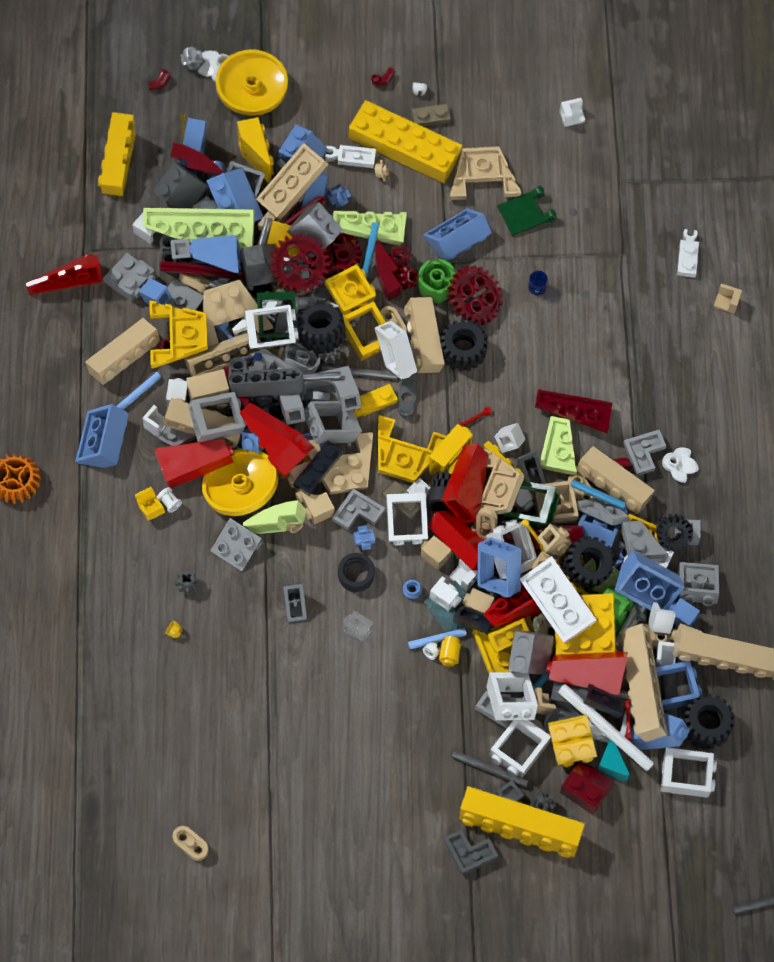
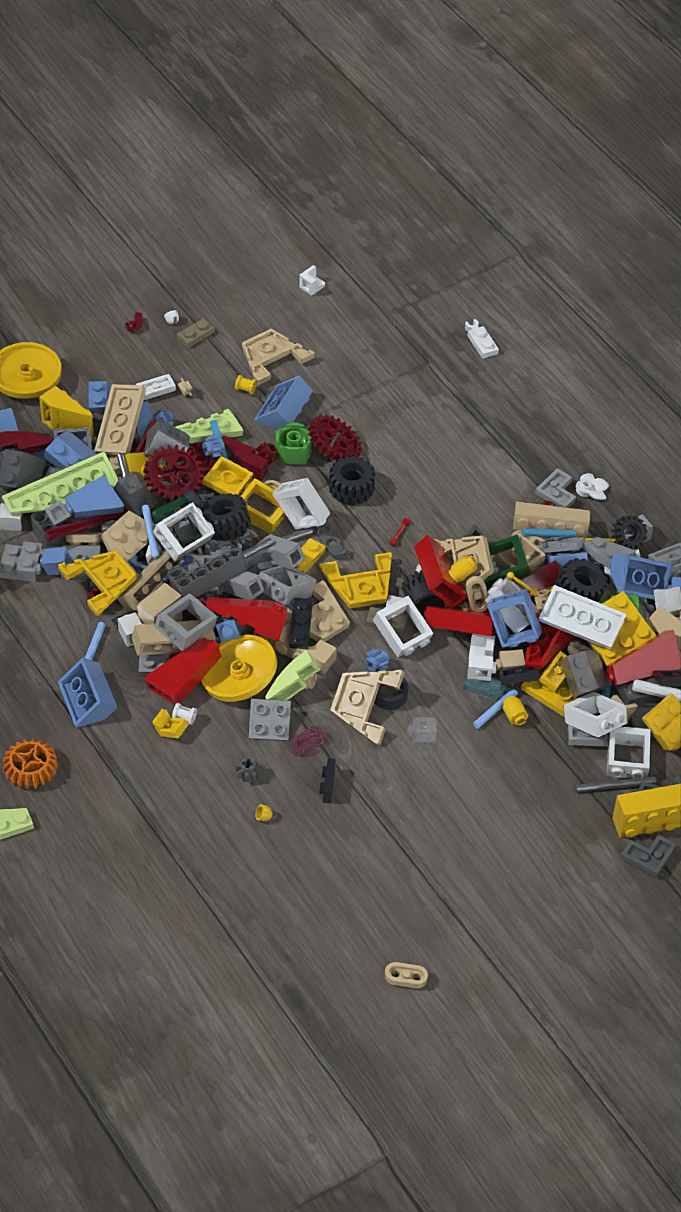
camera: 30 degrees left, 15 degrees down
(123, 351) = (58, 618): tan brick -> none
(153, 421) = (127, 661): white panel -> none
(240, 635) = (326, 787): none -> black plate
(249, 305) = (149, 527): none -> light blue bar
(254, 577) = (305, 740): none -> clear pink beam
(294, 602) = (353, 737): dark grey slope -> none
(299, 299) = (192, 497): none -> black wheel
(319, 566) = (356, 698): none -> tan wing
(357, 505) = (353, 639): light grey plate -> none
(359, 249) = (213, 446): none -> medium blue gear
(404, 141) = (189, 358): yellow brick -> none
(404, 251) = (246, 434): dark red gear -> none
(412, 584) = (449, 678): medium blue plate -> none
(424, 335) = (299, 469): tan brick -> none
(431, 650) = (501, 721): white hinge -> none
(435, 552) = (445, 643): tan brick -> none
(437, 195) = (245, 384): none -> yellow bush
(446, 454) = (403, 558): yellow window -> none
(486, 494) = (463, 568): none -> yellow brick
(510, 437) = (441, 529): white panel -> none
(523, 213) = (326, 369): dark green flag -> none
(537, 282) = (377, 410): clear blue wheel -> none
(555, 540) = (543, 577): tan brick -> none
(558, 448) = (487, 519): yellowish green wing -> none
(581, 410) = (483, 483): dark red wing -> none
(727, 298) = (537, 354): tan panel -> none

